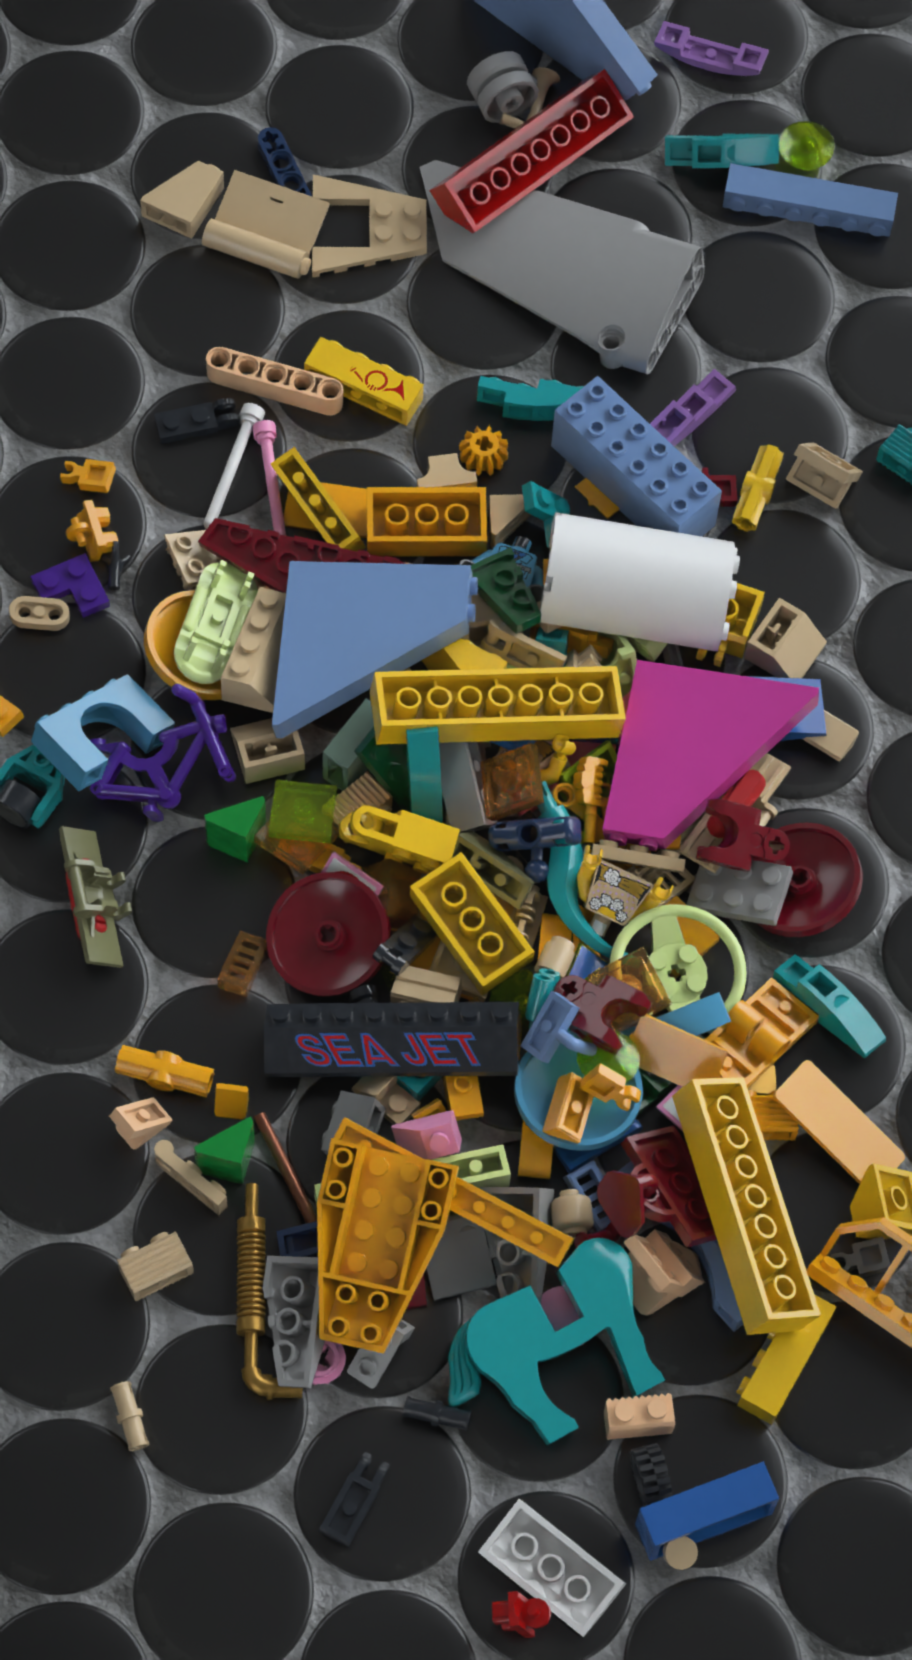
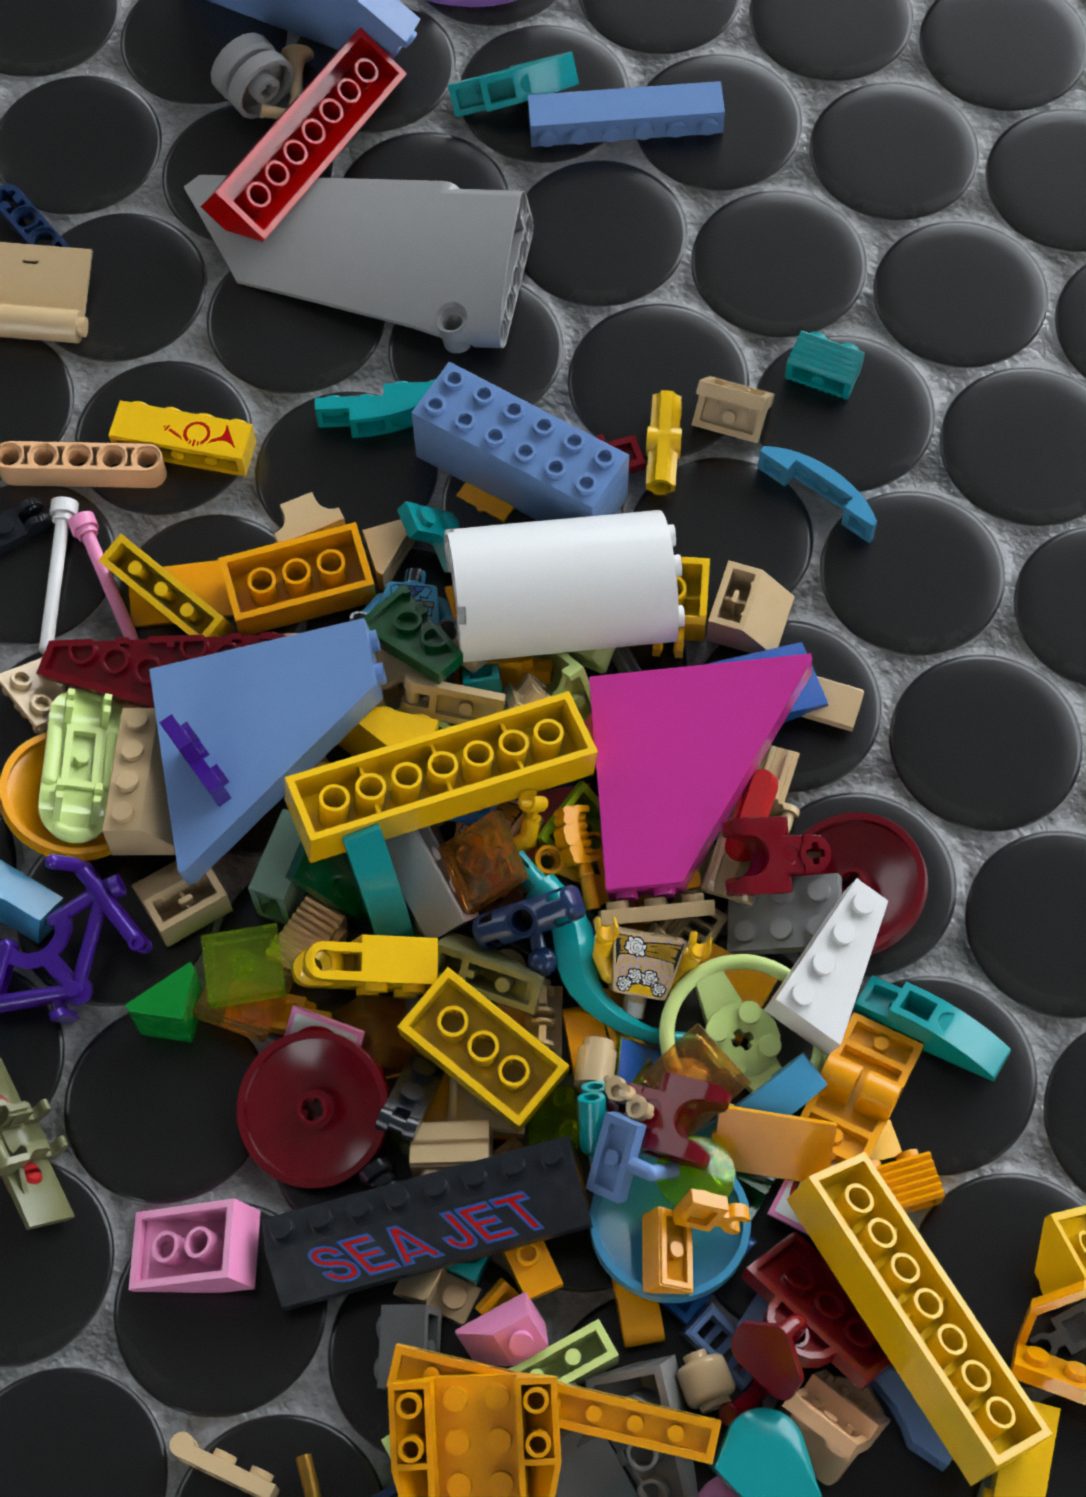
camera: 10 degrees left, 0 degrees up
(140, 1121) = (143, 1412): light nougat slope -> none
(164, 1070) = (157, 1338): light orange piece -> none
(210, 1013) = (196, 1248): none -> bright pink slope
(227, 1153) = (263, 1426): green slope -> none
(231, 1101) = (250, 1353): light orange slope -> none
(236, 984) = (206, 1167): clear orange slope -> none
(285, 1167) = (340, 1421): copper bar -> none
(308, 635) = (195, 753): none -> dark purple plate
(395, 224) = (173, 257): tan wing -> none
(483, 450) = (341, 481): light orange gear -> none
(567, 981) = (620, 1092): none -> tan piece
(693, 407) = (565, 371): medium lavender slope -> none
(753, 941) = (828, 974): none -> white wedge
(810, 137) = (604, 57): clear neon green dish -> none
(835, 1122) = (986, 1172): light orange piece -> none
(854, 533) = (787, 464): none -> dark azure slope

